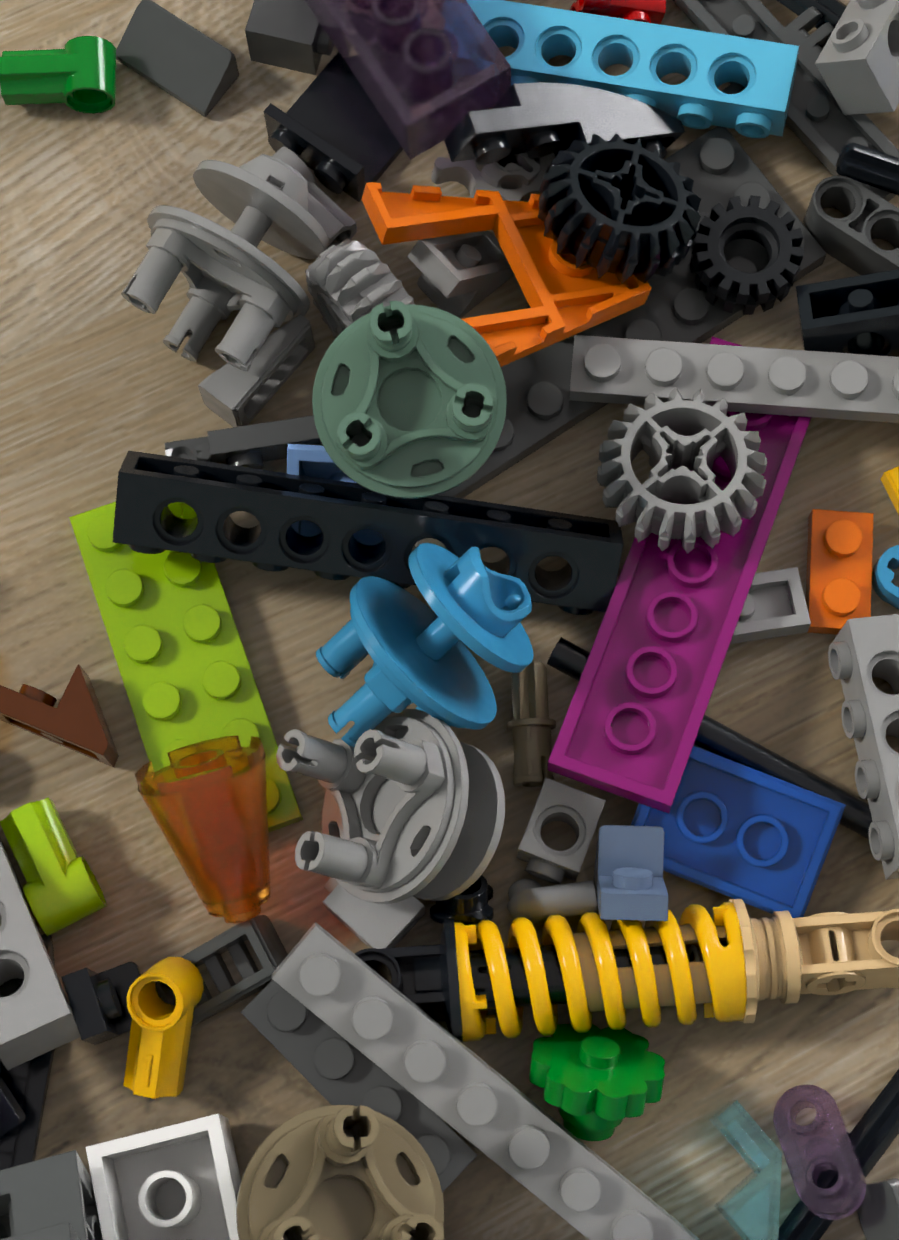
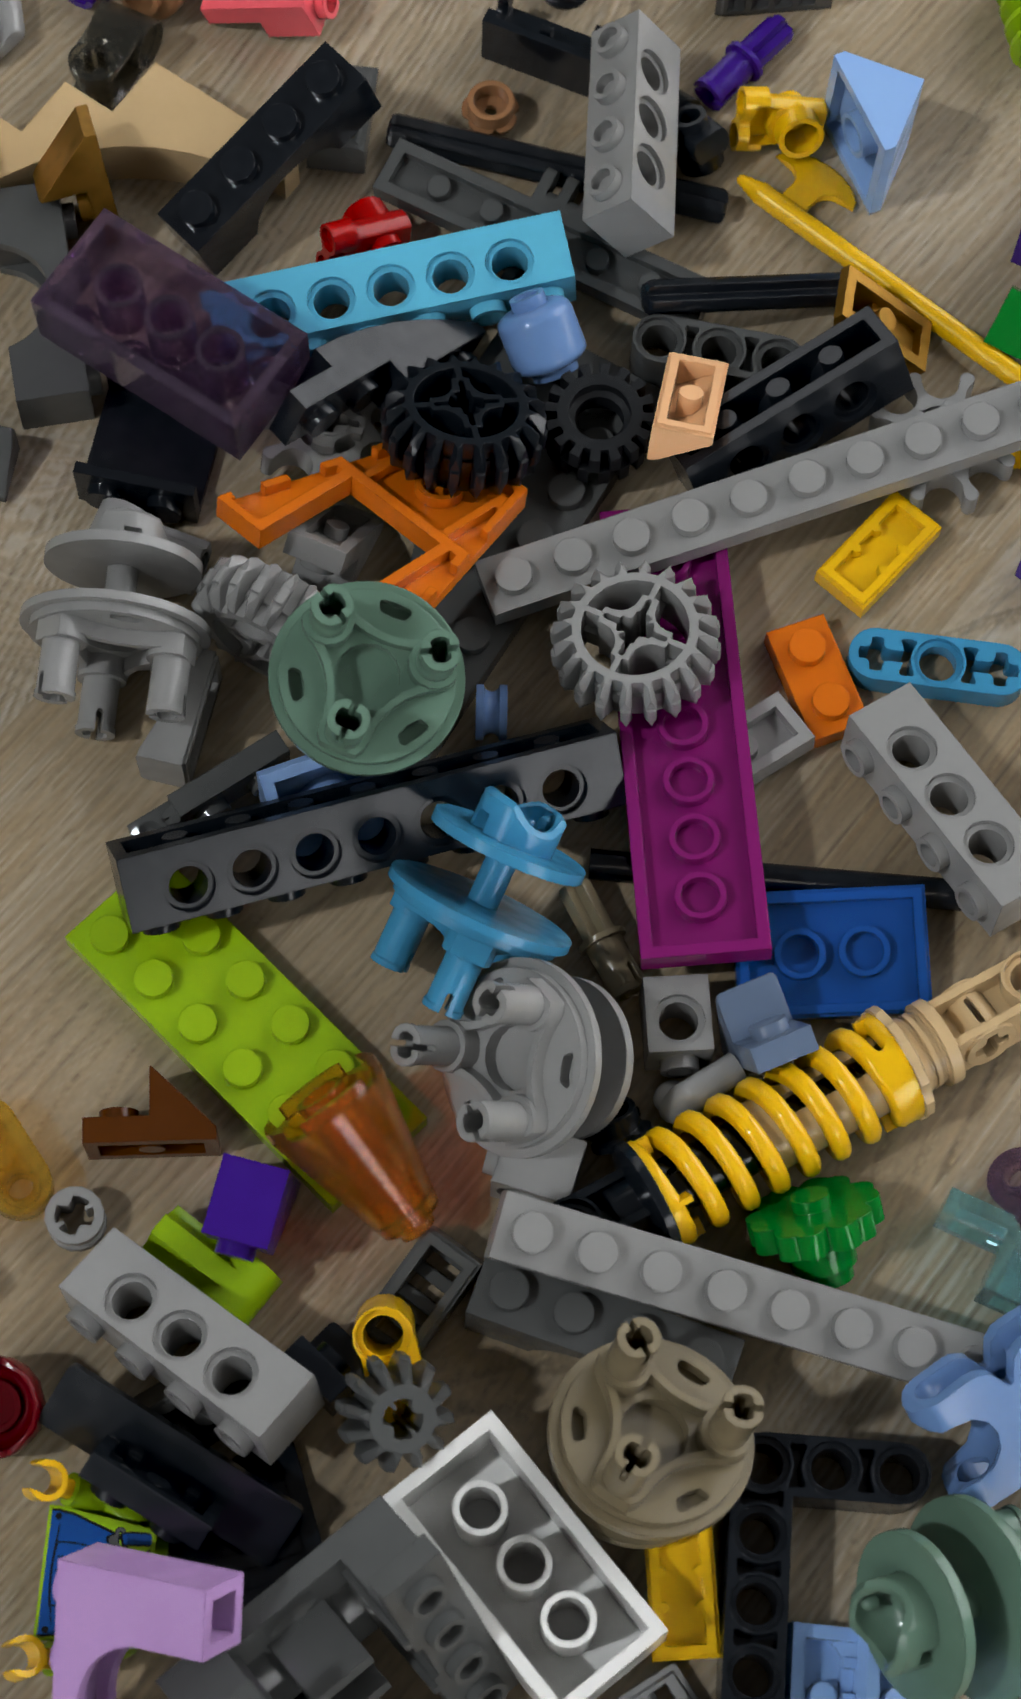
camera: 30 degrees left, 5 degrees down
(98, 830) = (249, 1207): none -> dark purple slope
(124, 1100) = (409, 1431): none -> dark grey gear
(530, 476) = (491, 712): none -> medium blue bush
(730, 154) = (541, 336): none -> medium blue head
(831, 271) = (687, 405): none -> light nougat slope

